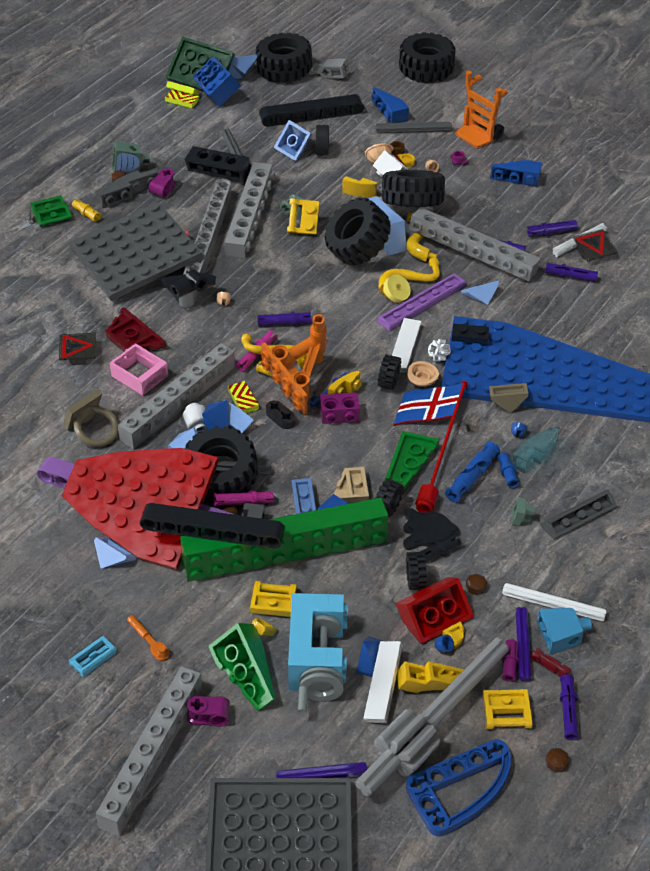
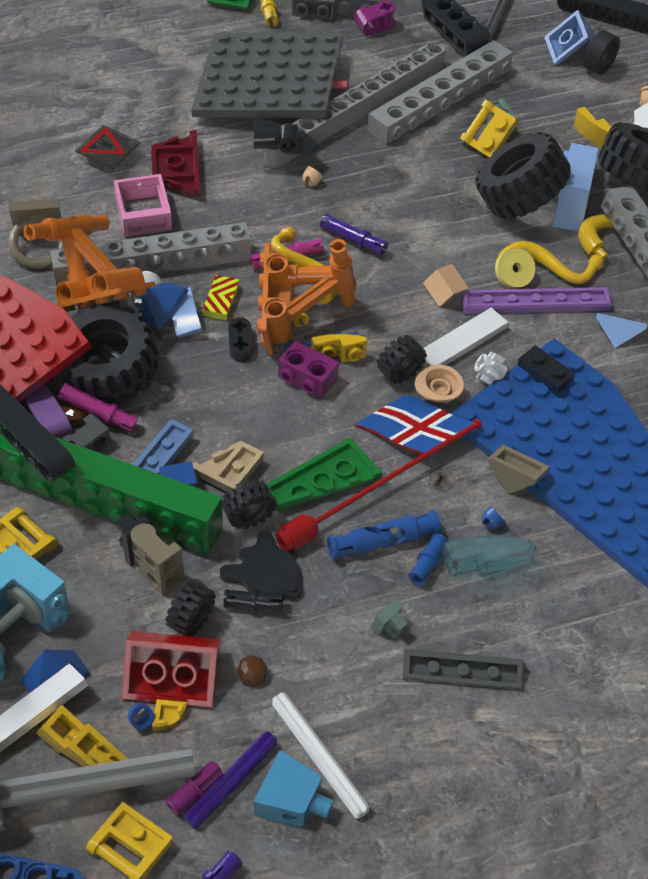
camera: 35 degrees right, 5 degrees up
(173, 432) = (82, 287): none -> orange plate
(362, 556) = (152, 557): none -> dark tan hips
(367, 319) = (444, 284): none -> light nougat panel
(550, 663) = (238, 826): dark red axle -> none

